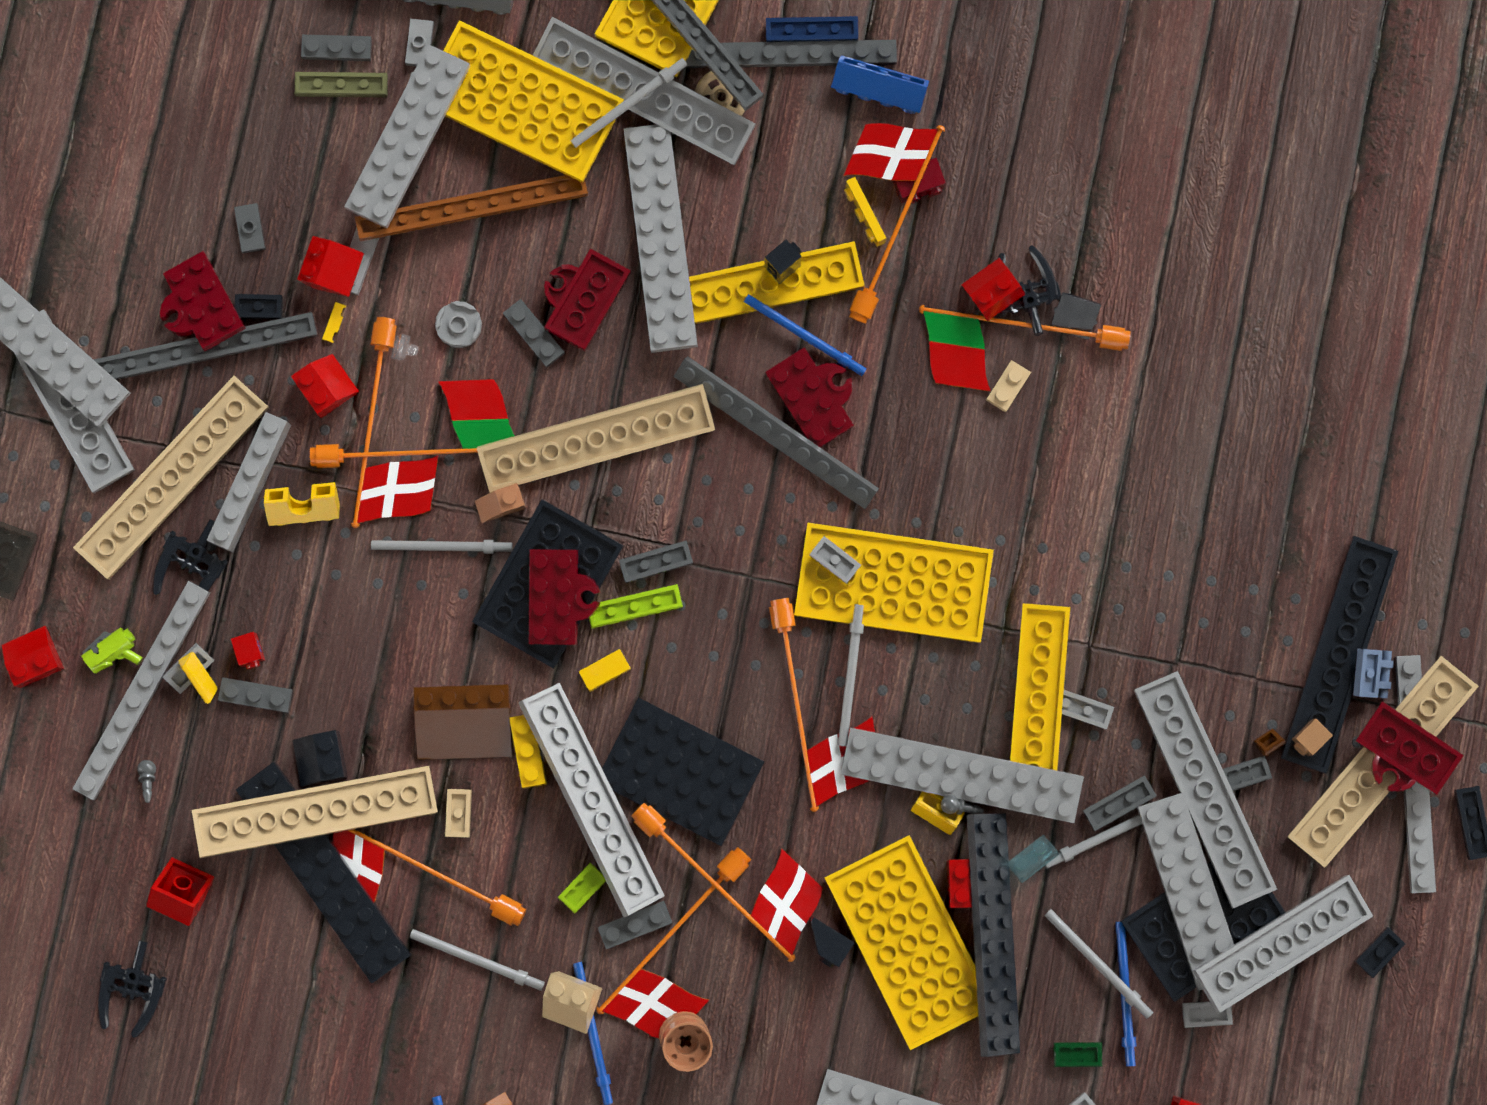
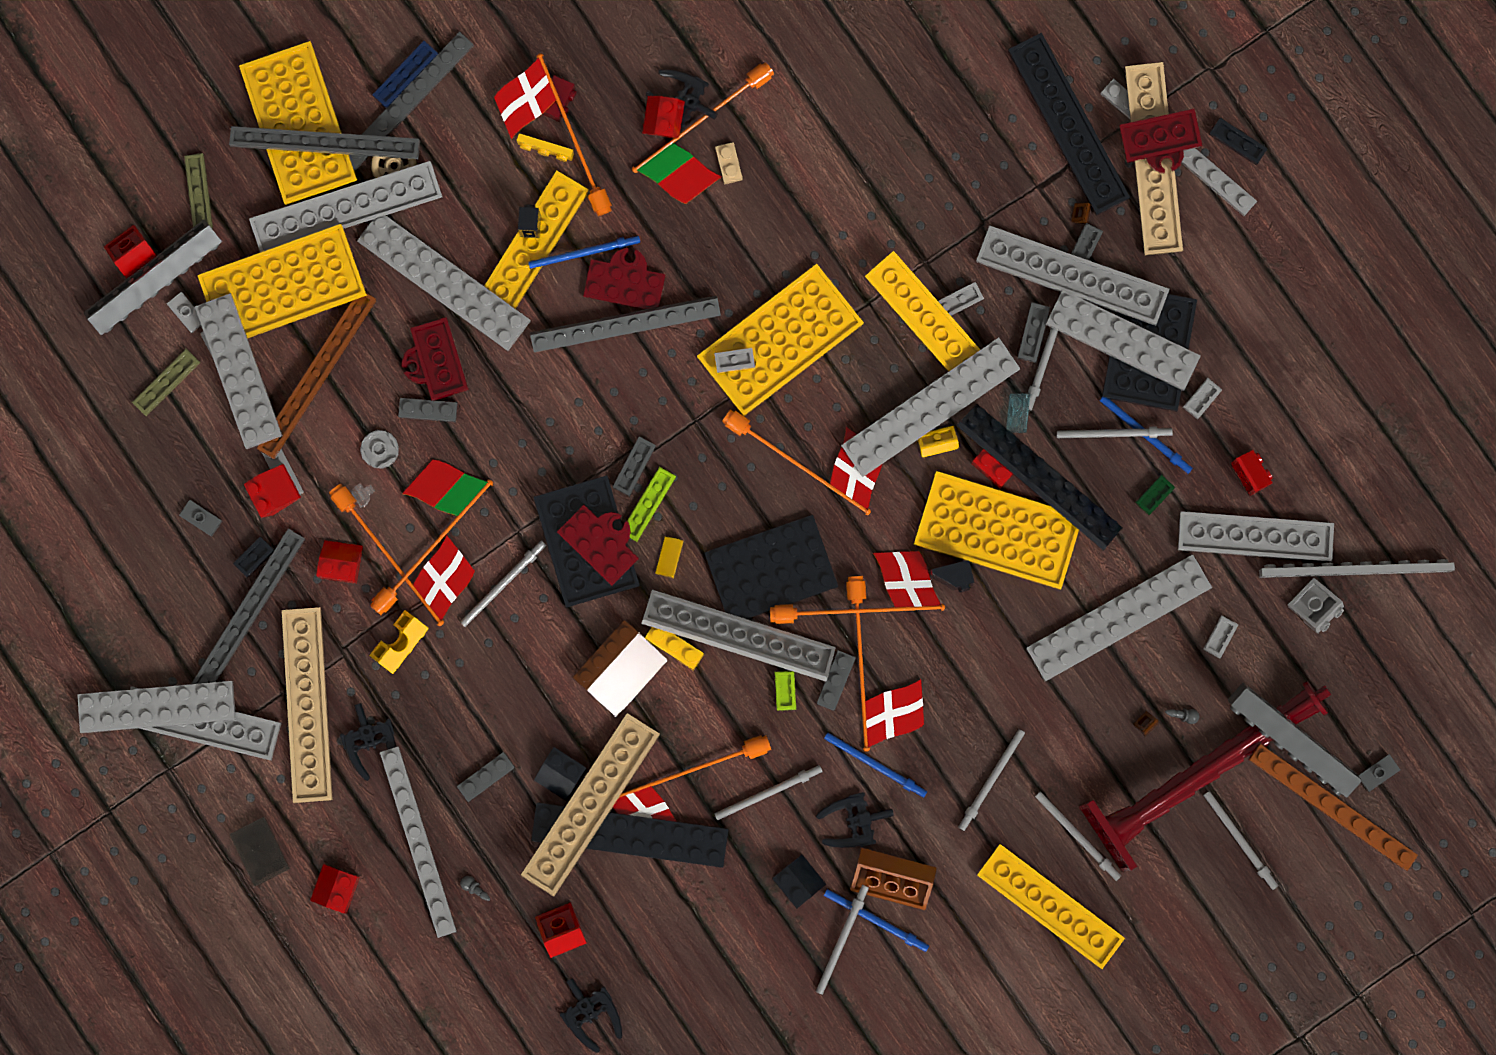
camera: 45 degrees left, 0 degrees up
(109, 648) = (374, 837): lime piece -> none
(175, 675) = (431, 801): light grey plate -> none
(198, 676) = (443, 800): yellow slope -> none
(200, 303) = (218, 590): dark red plate -> none
(248, 650) = (455, 756): red brick -> none
(249, 482) = (355, 661): light grey brick -> none
(334, 322) = (306, 521): yellow piece -> none
(336, 47) = (140, 364): dark grey plate -> none
(422, 1064) = (799, 881): none -> black slope
(458, 813) = (671, 722): tan plate -> none
(500, 503) = (511, 524): nougat slope -> none
(532, 1068) = (862, 819): none -> black bar
(570, 1001) = (845, 760): tan slope -> none
(596, 438) = (527, 432): tan plate -> none
(664, 76) = (351, 185): light grey bar -> none
(684, 1054) = (942, 716): nougat wheel -> none
(856, 628) = (786, 386): light grey bar -> none
(879, 84) = (477, 66): blue brick -> none
(951, 804) = (942, 429): dark grey bar -> none
(1075, 313) = (724, 83): black piece -> none
(1282, 943) = (1203, 316): light grey plate -> none
(1311, 738) = (1101, 186): medium nougat brick -> none
(1372, 673) = (1098, 115): sand blue plate -> none
(1379, 952) = (1261, 266): black plate -> none

